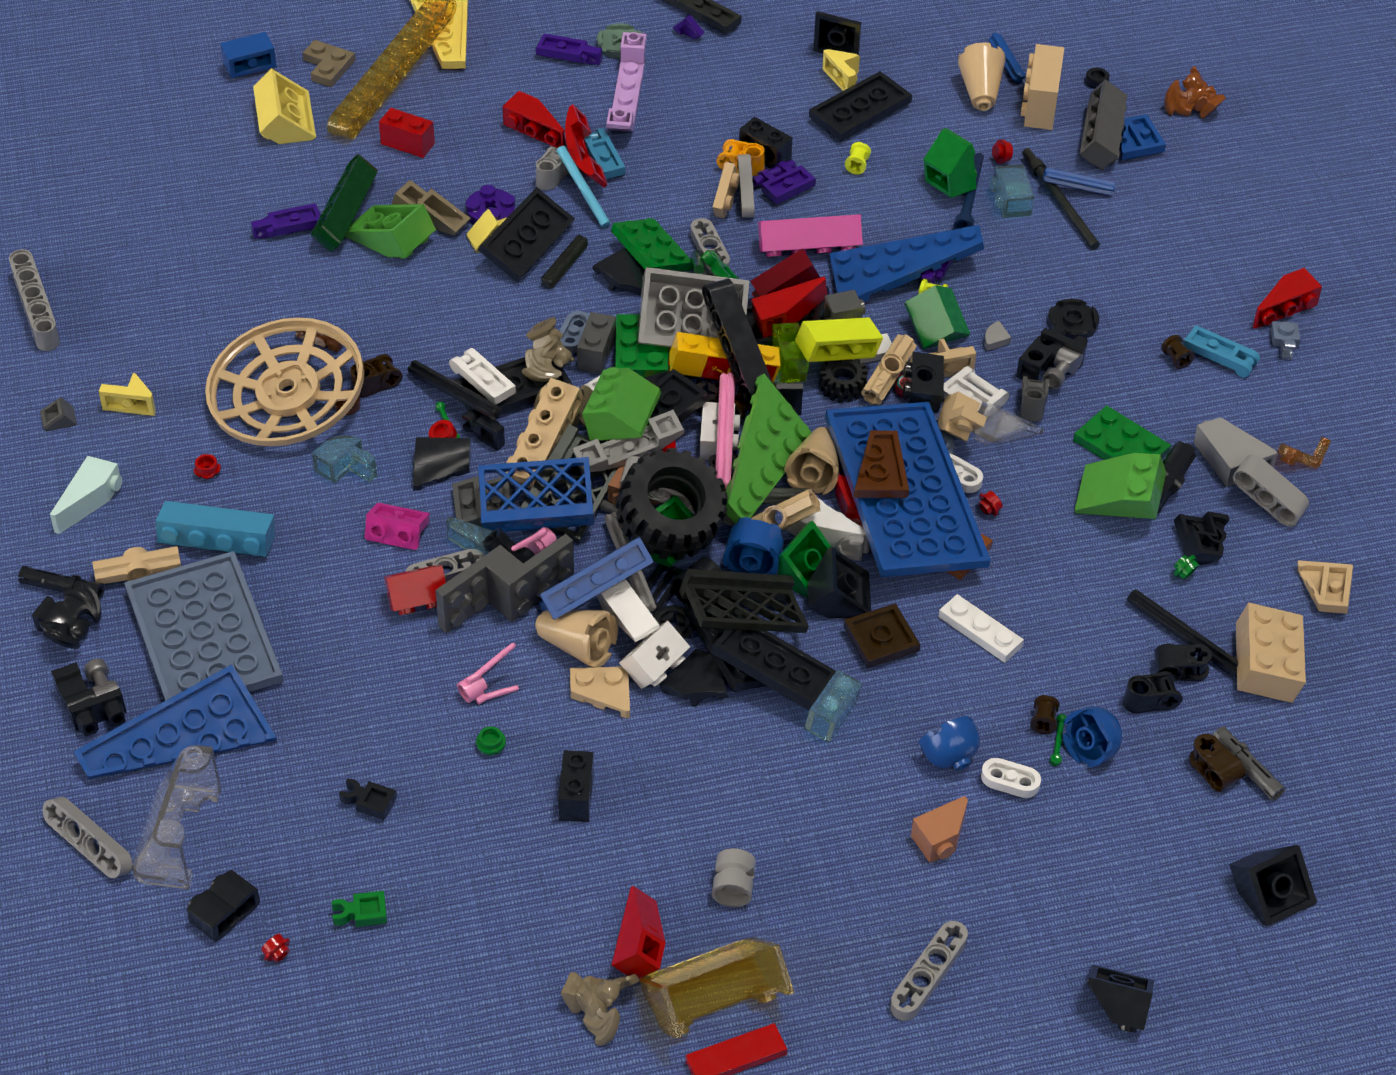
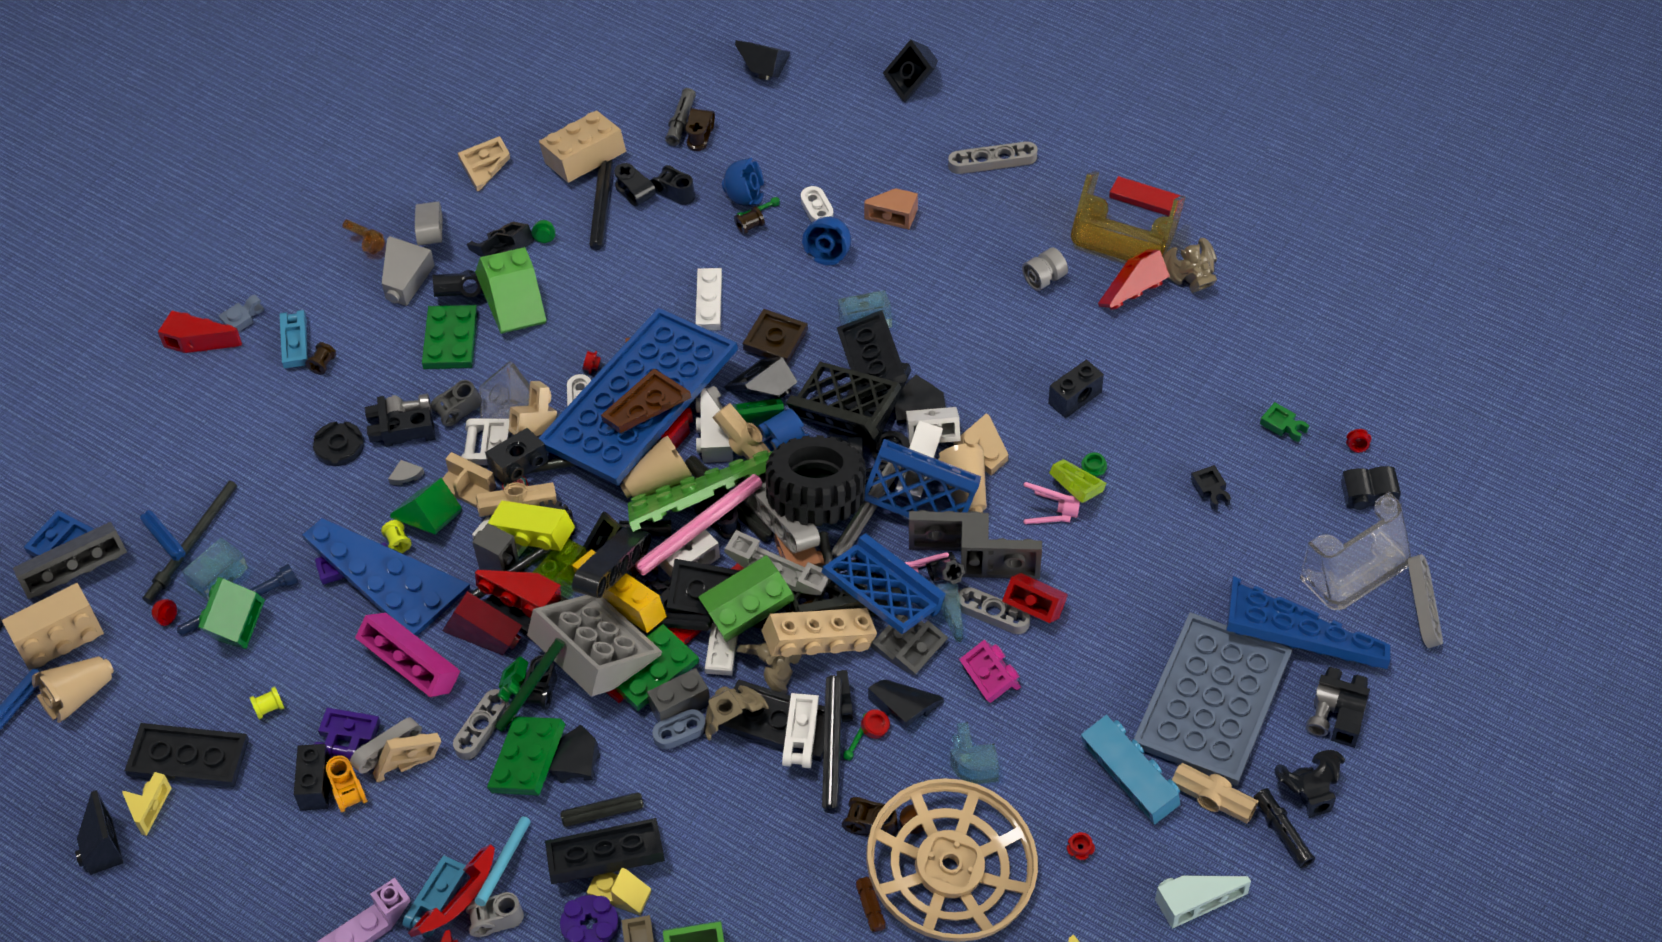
camera: 130 degrees left, 5 degrees up
(485, 706) = (1077, 481): none -> lime wing

